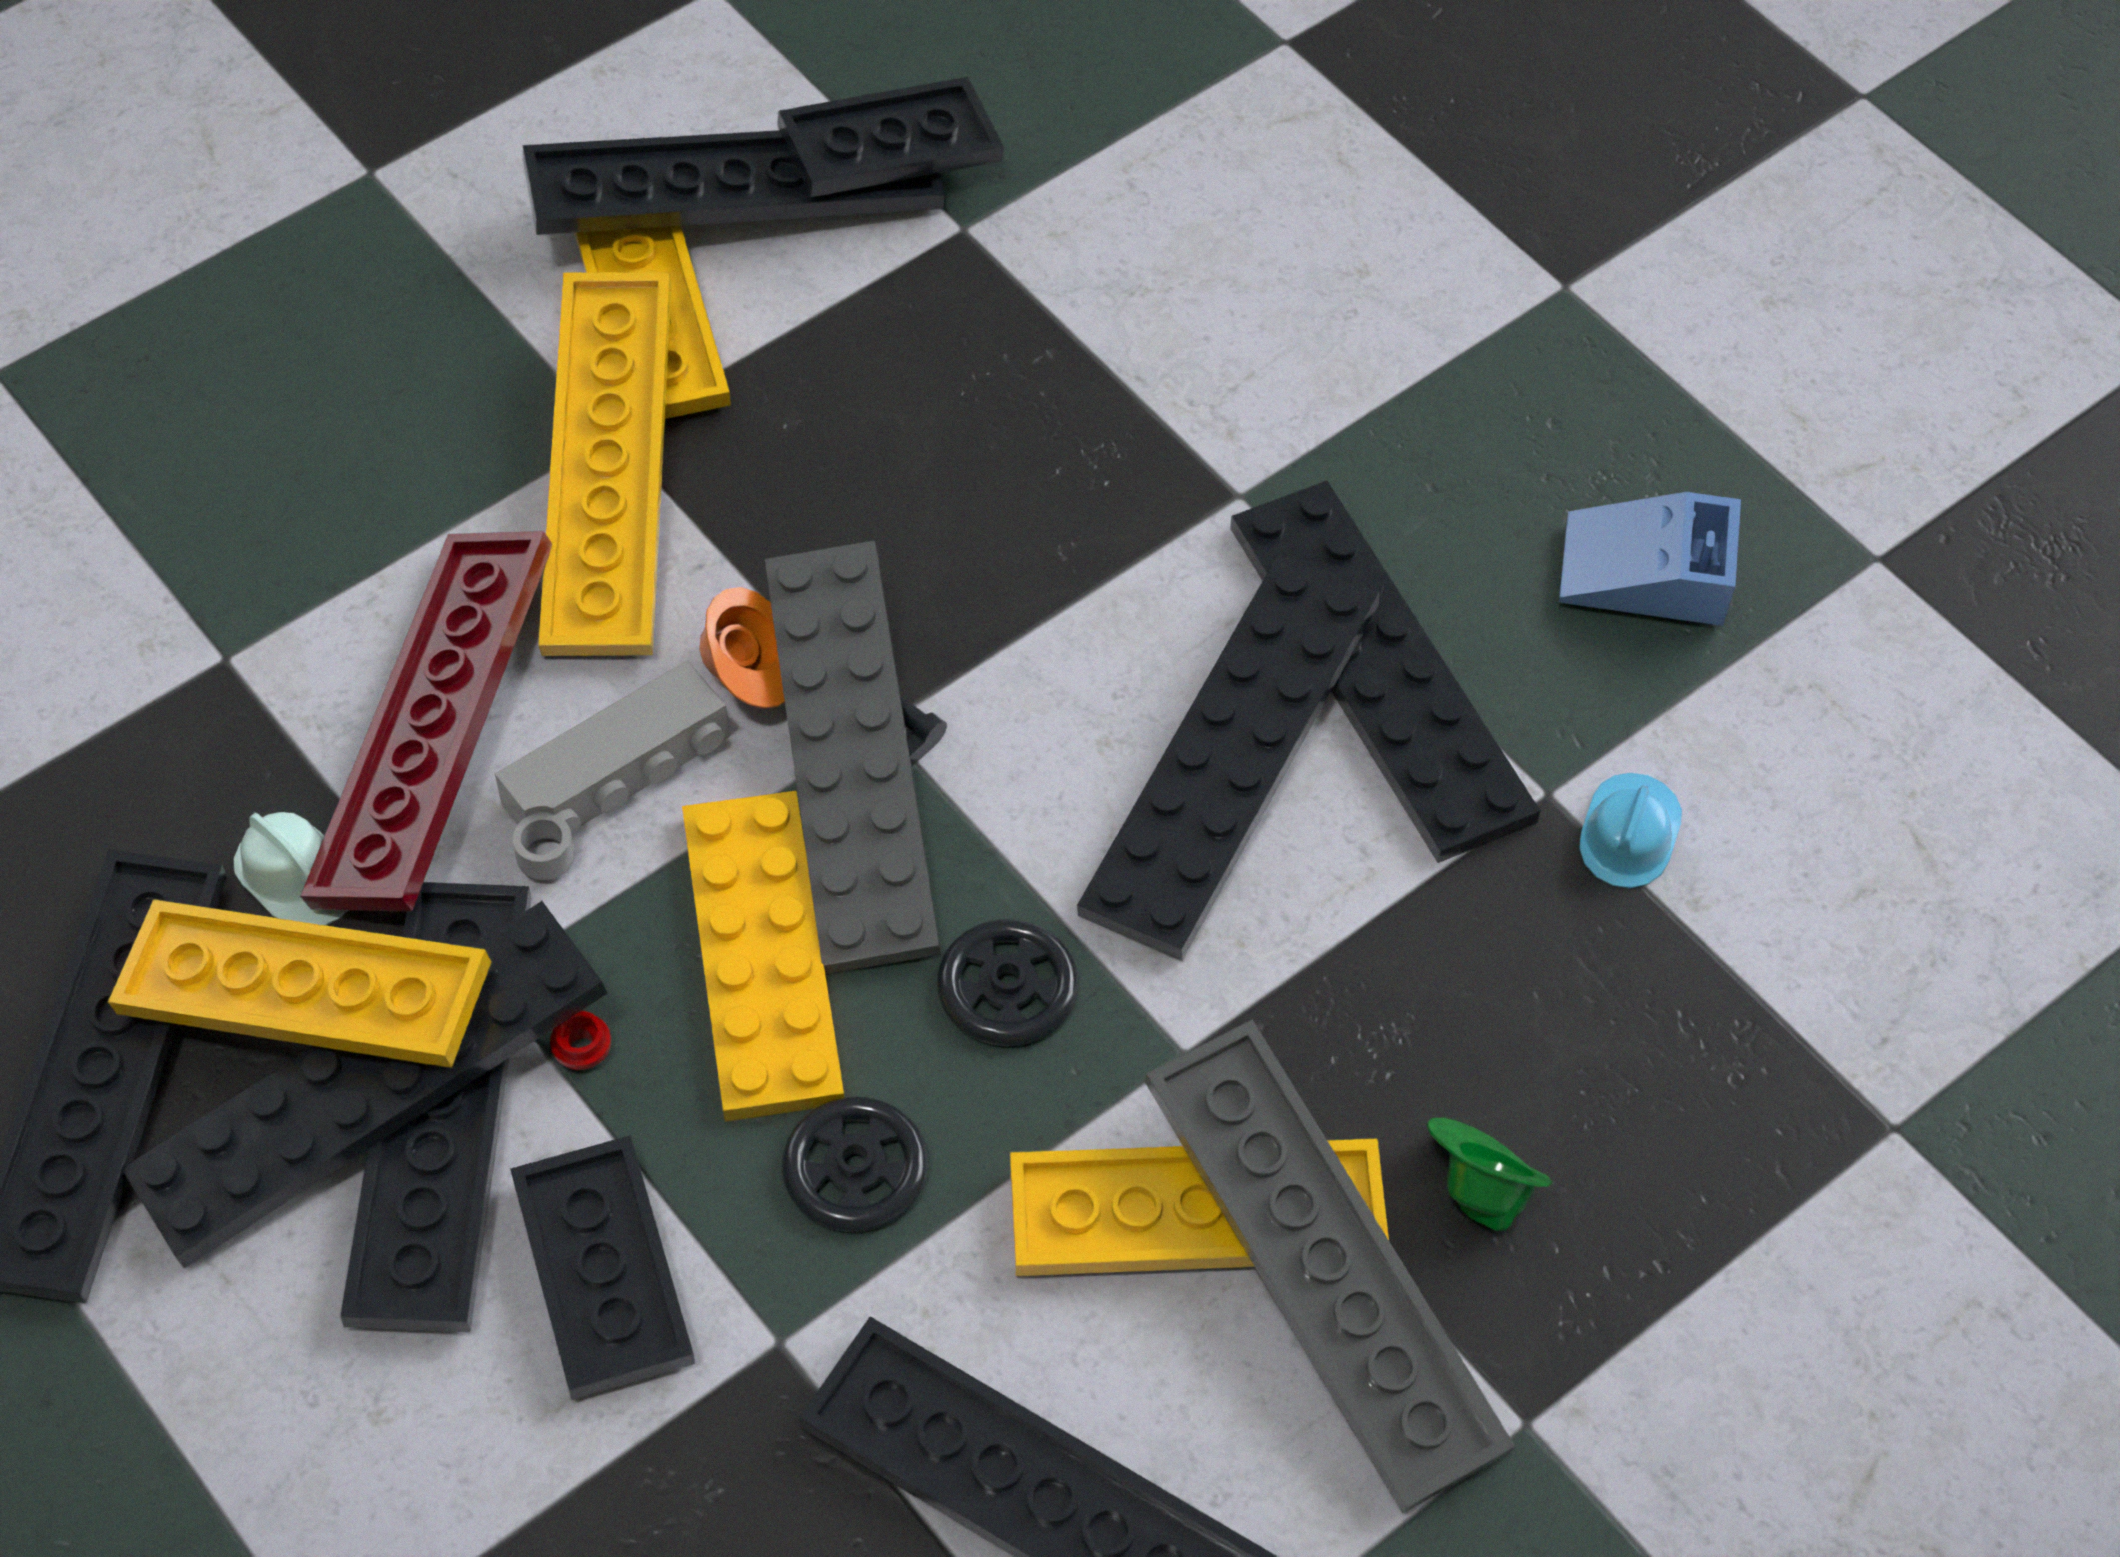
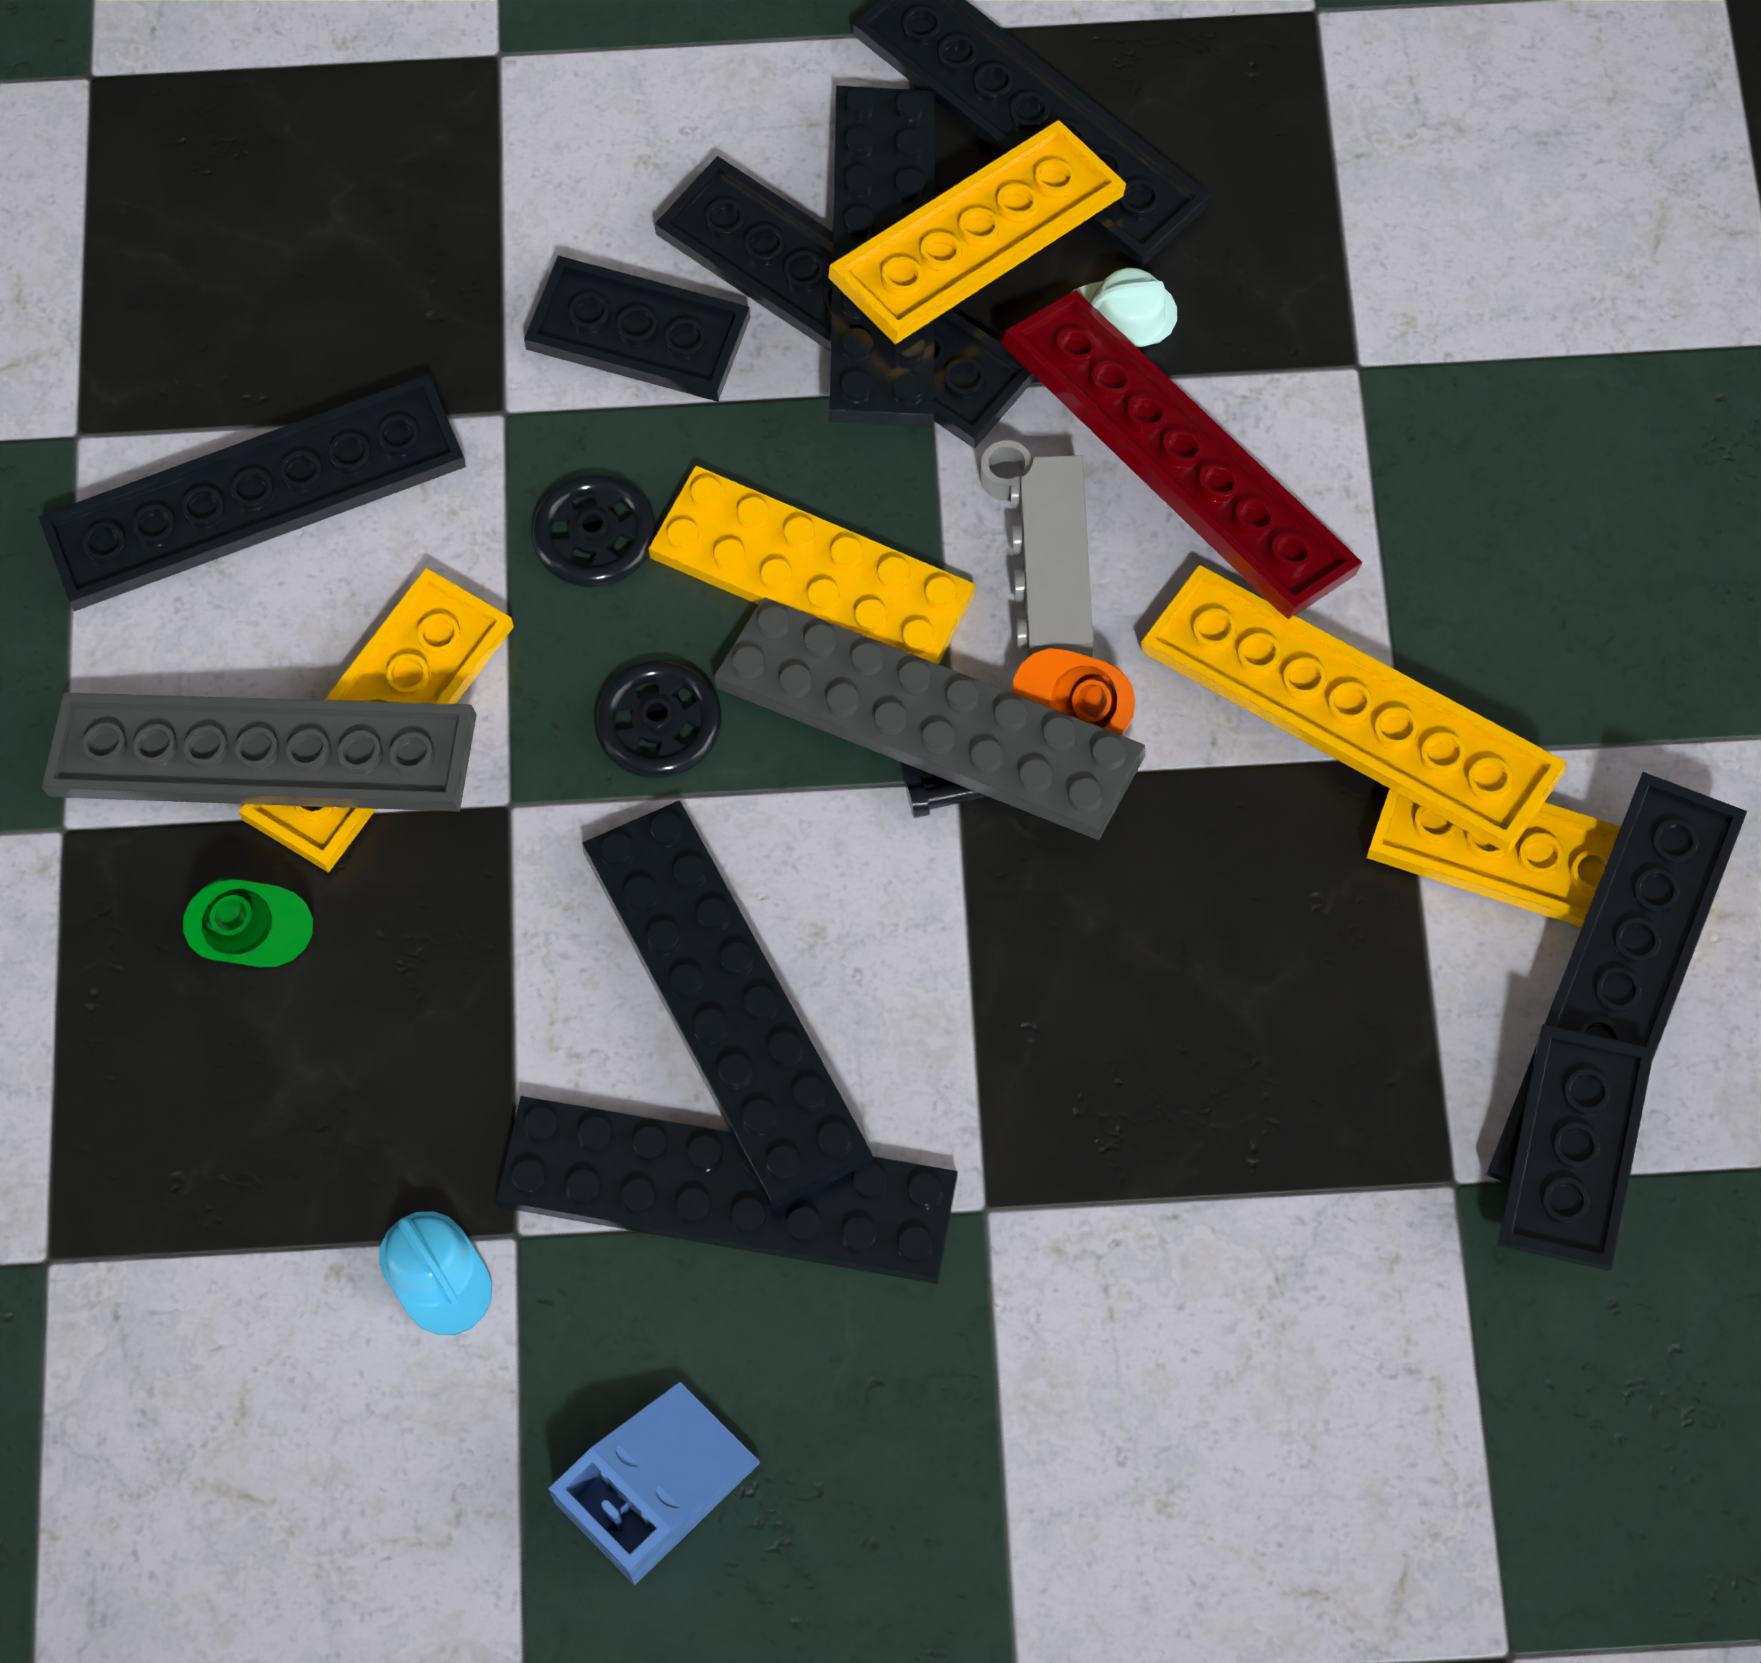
camera: 130 degrees right, 10 degrees up
(581, 1026) = (811, 407): red plate -> none

